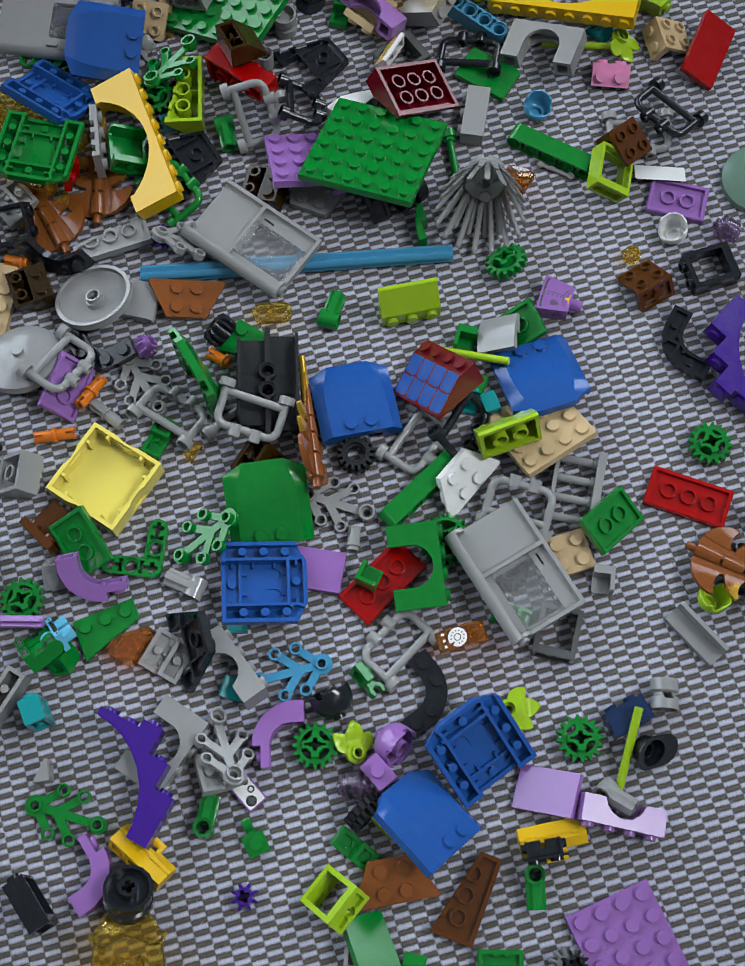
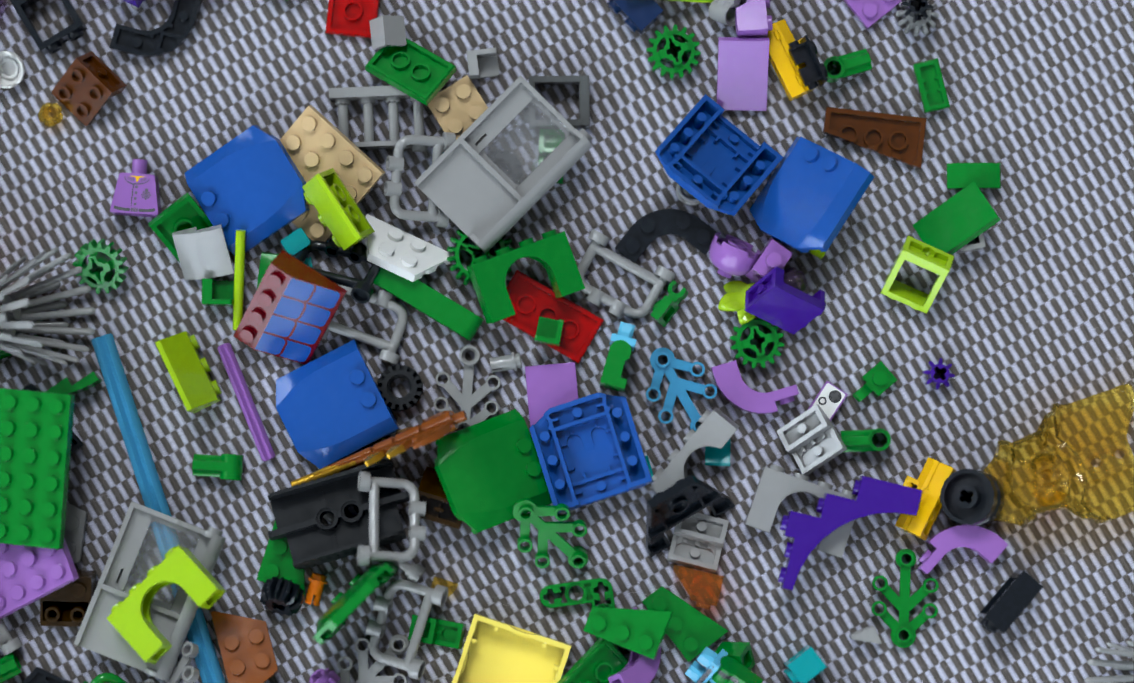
camera: 105 degrees left, 15 degrees up
(108, 578) = (630, 628): none -> green wing
(191, 586) = (611, 537): light grey piece -> none
(224, 750) = (790, 439): light grey plant -> none
(235, 218) = (133, 614): none -> lime arch
(272, 312) = (238, 540): clear yellow plate -> none
(332, 624) = (617, 357): none -> green hips
(332, 701) = (702, 335): black cylinder -> none
(338, 770) = (783, 304): none -> dark purple panel
(353, 847) = (856, 269): green slope -> none
(362, 812) = (817, 268): black tyre -> none
(375, 342) = (246, 402): none -> medium lavender axle
(395, 882) = (879, 217): dark orange wing -> none
(462, 637) = (594, 207): clear orange slope -> none
(521, 707) = (653, 124): lime plate -> none
(645, 510) = (387, 31): none -> light grey panel

